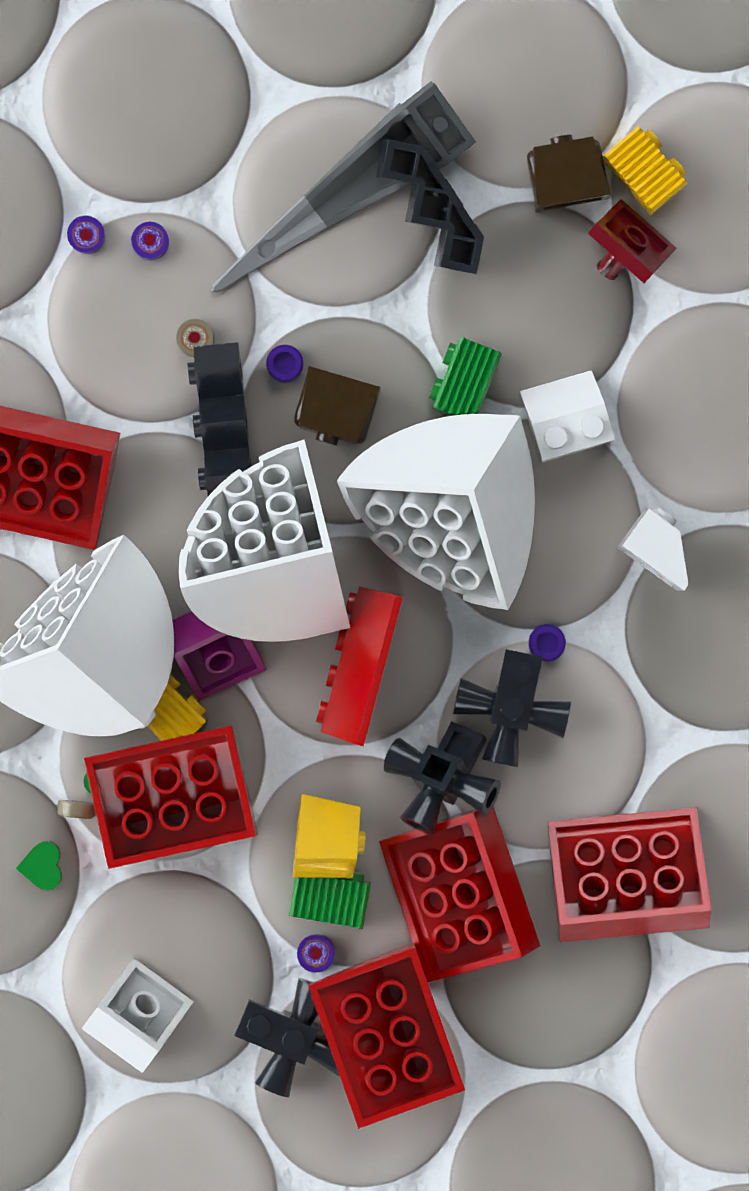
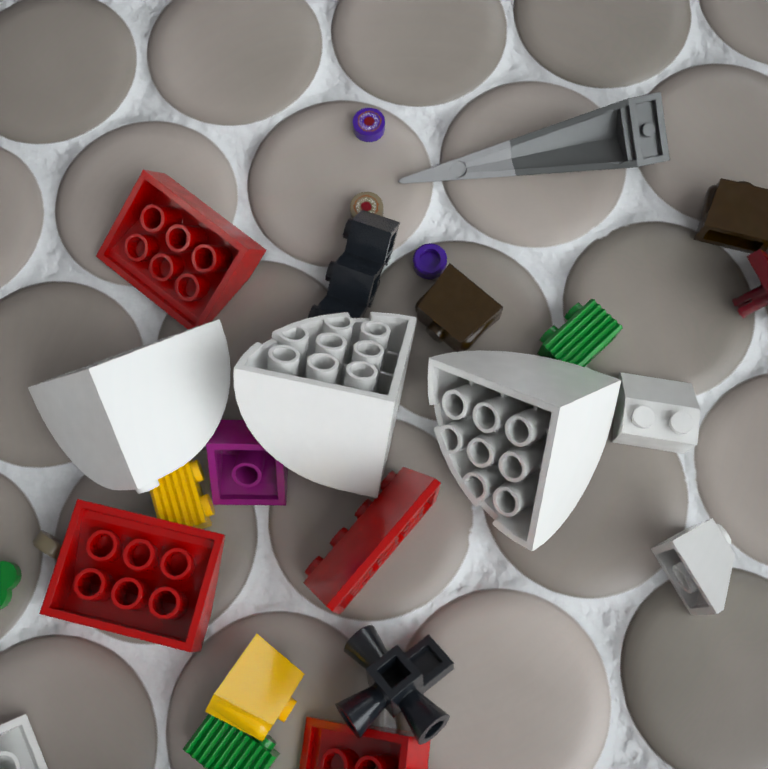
camera: 30 degrees right, 15 degrees down
(86, 234) = (321, 98): dark purple tile -> none
(433, 204) = (618, 184): black brick -> none
(512, 706) = (494, 648): black brick -> none
(547, 642) = (550, 604): dark purple tile -> none

